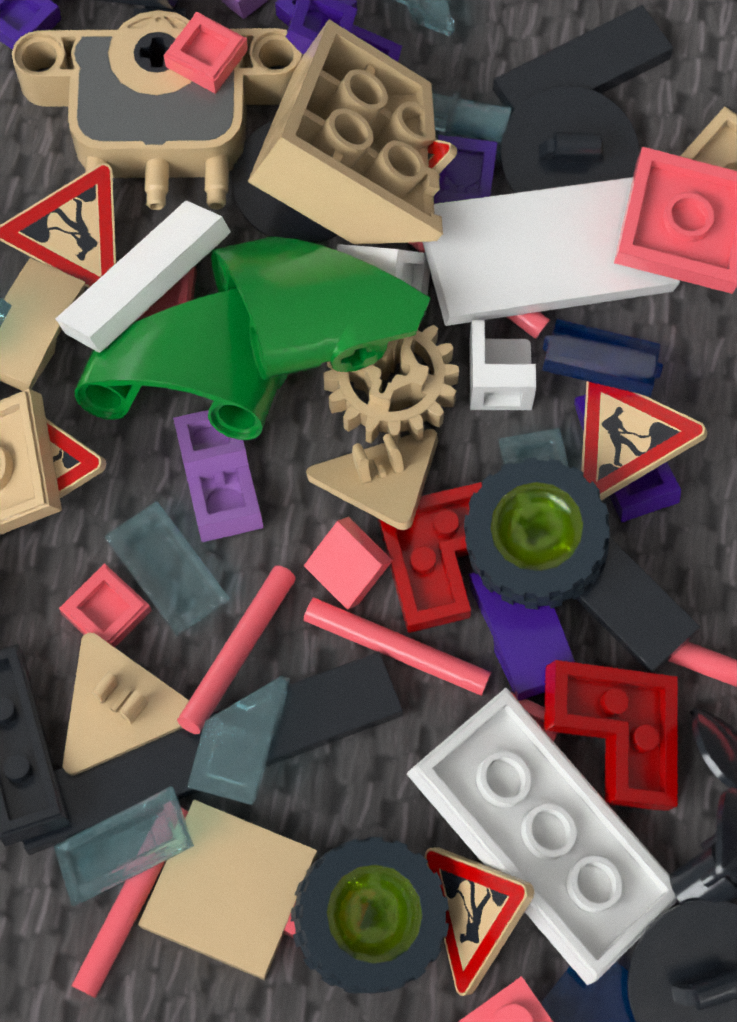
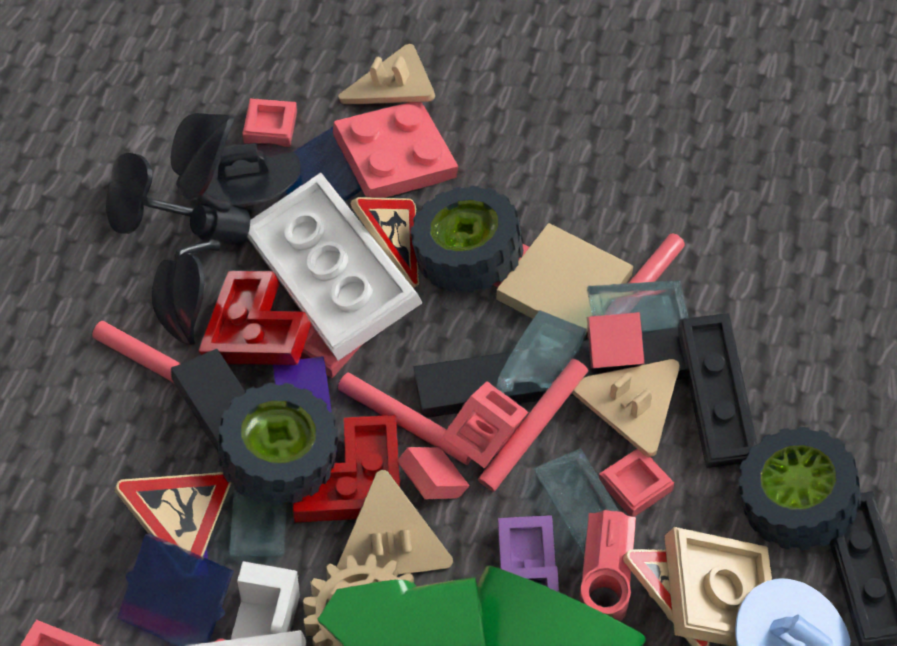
camera: 170 degrees left, 15 degrees down
(127, 482) = (607, 541): none -> coral piece
(146, 772) = (615, 340): none -> coral tile
(292, 625) = (485, 424): none -> coral brick

